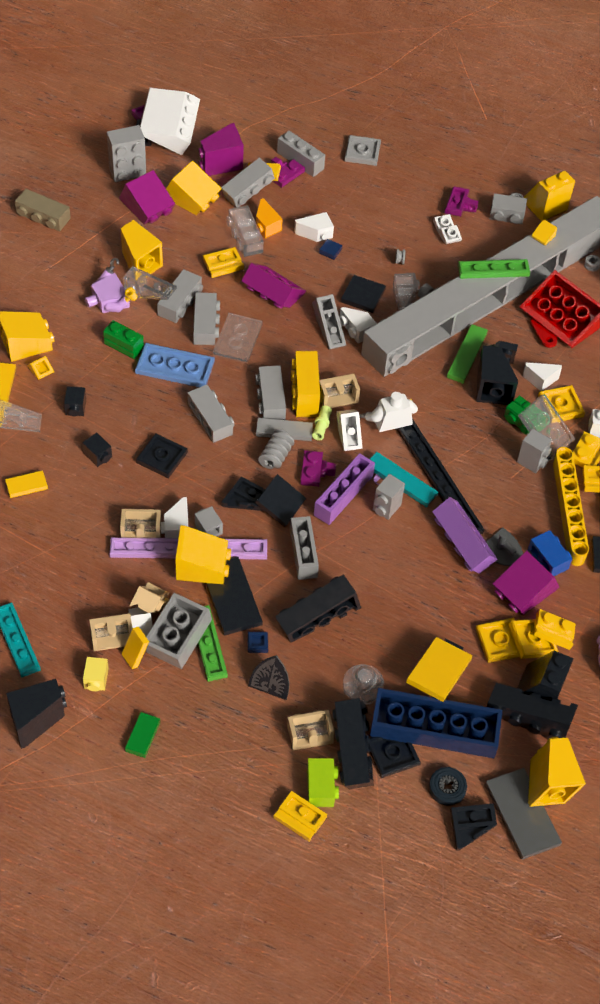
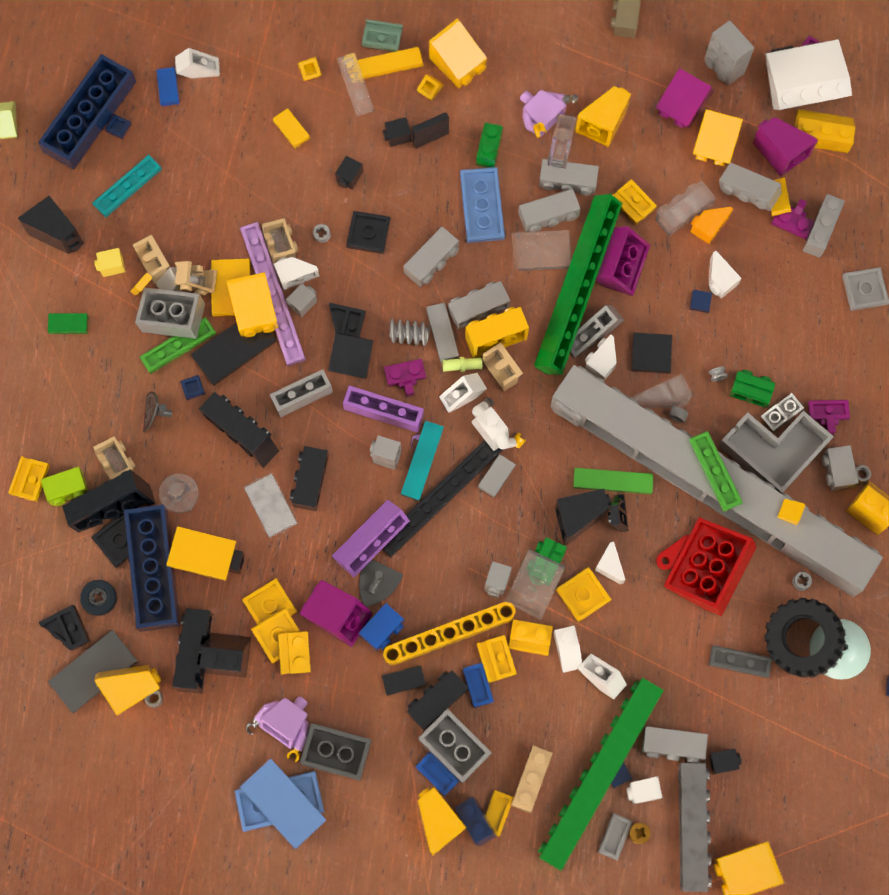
camera: 75 degrees right, 20 degrees up
(89, 372) = (430, 130): none -> black tile
(144, 486) = (322, 227): none -> light grey bush
(163, 574) = (226, 270): none -> yellow tile
(217, 121) = (830, 130): none -> yellow slope
(285, 318) = (578, 284): none -> green brick
(389, 568) = (309, 478): none -> black brick
(401, 612) = (270, 505): none -> clear piece
(421, 239) = (752, 388): none -> green brick
(435, 430) = (496, 476): none -> light grey tile
(483, 234) = (774, 458): none -> light grey piece

